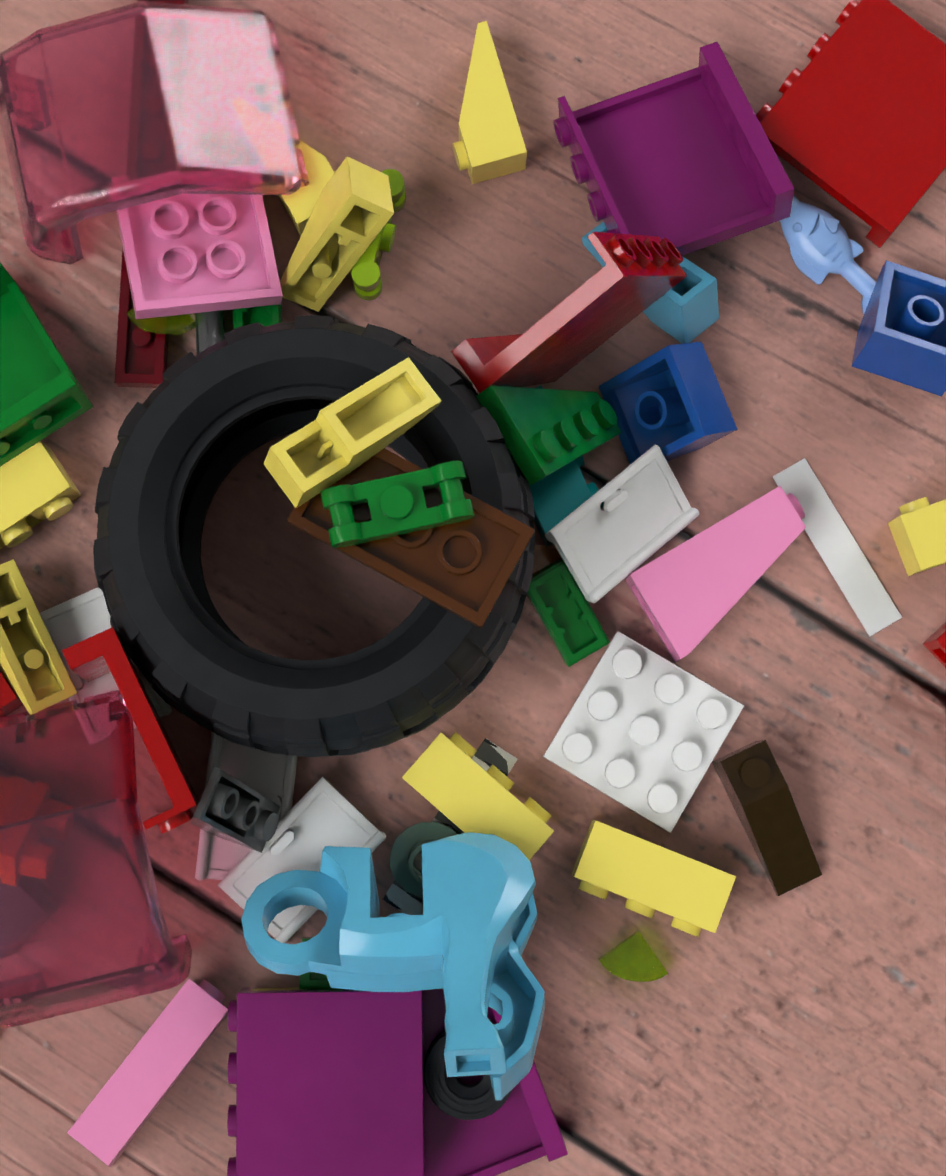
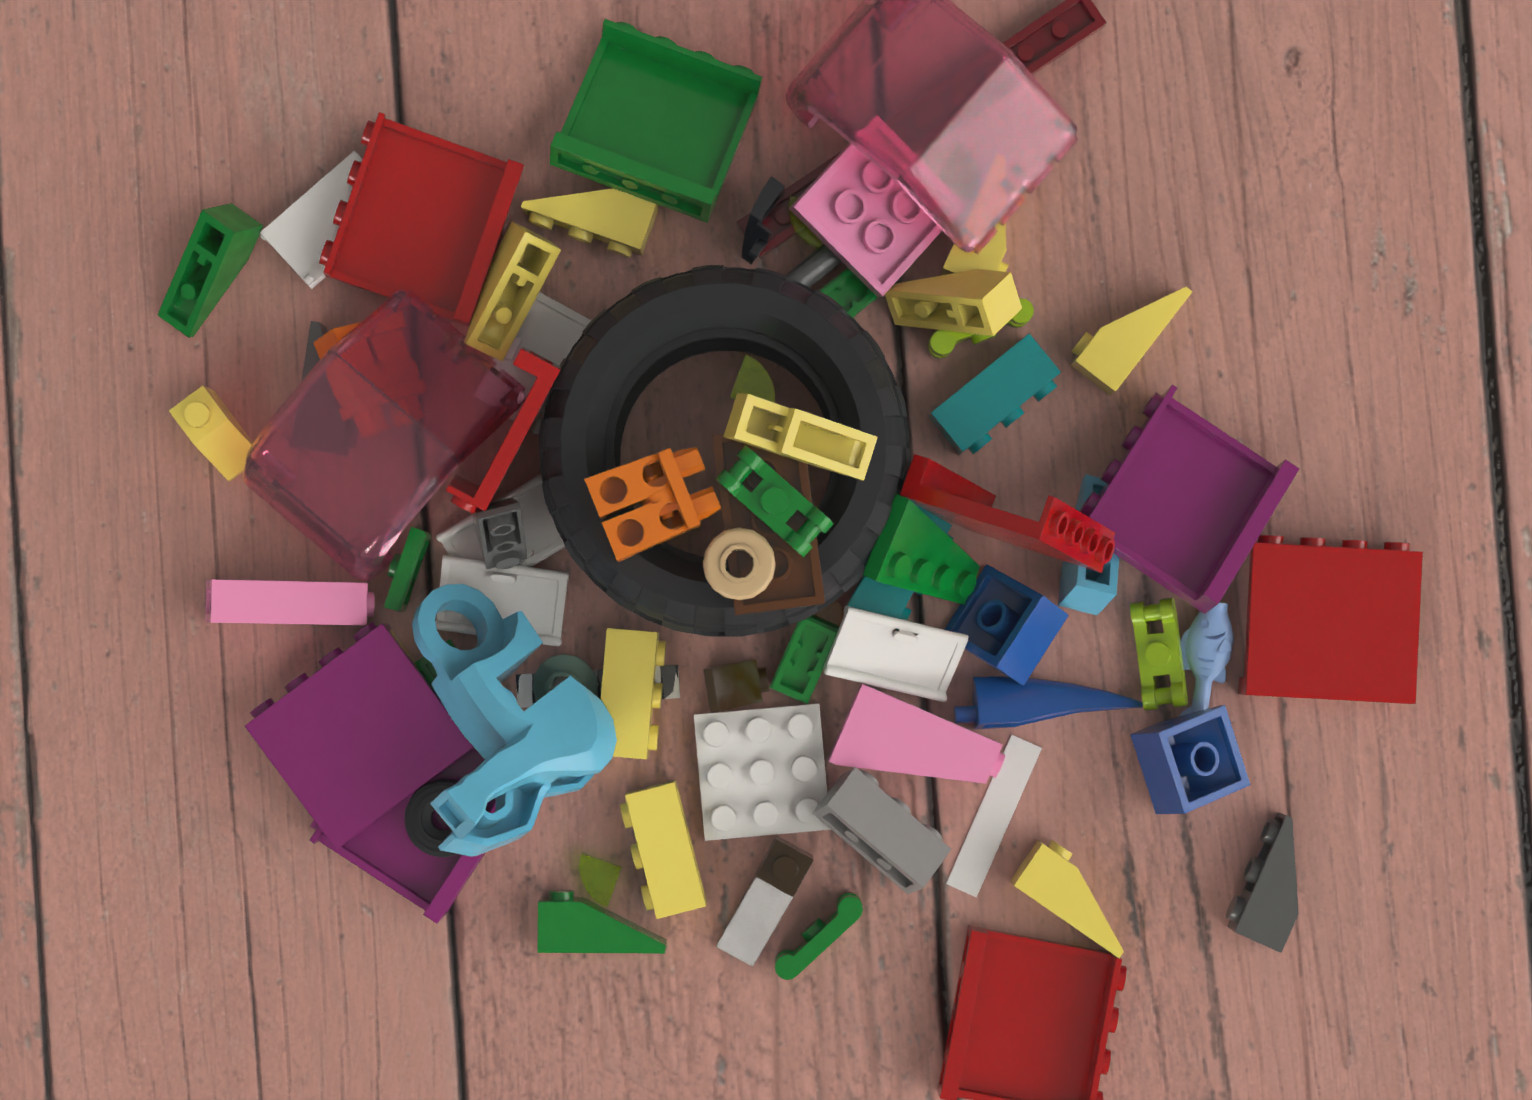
camera: 55 degrees right, 5 degrees up
(137, 366) = (756, 233): none -> black slope
(204, 931) = (405, 569): none -> green plate
(257, 441) = (754, 381): none -> clear neon green tile
(308, 610) = (665, 501): none -> orange hips
(435, 555) = (743, 540): none -> tan piece
(451, 264) = (996, 395): none -> teal brick
(544, 694) = (735, 685): none -> dark brown slope
(673, 1008) = (583, 926): none -> green slope
(743, 457) = (1007, 704): none -> blue piece
(781, 656) = (882, 830): none -> light grey brick
(795, 288) = (1159, 654): none -> lime plate
(840, 790) = (819, 937): none -> green plate

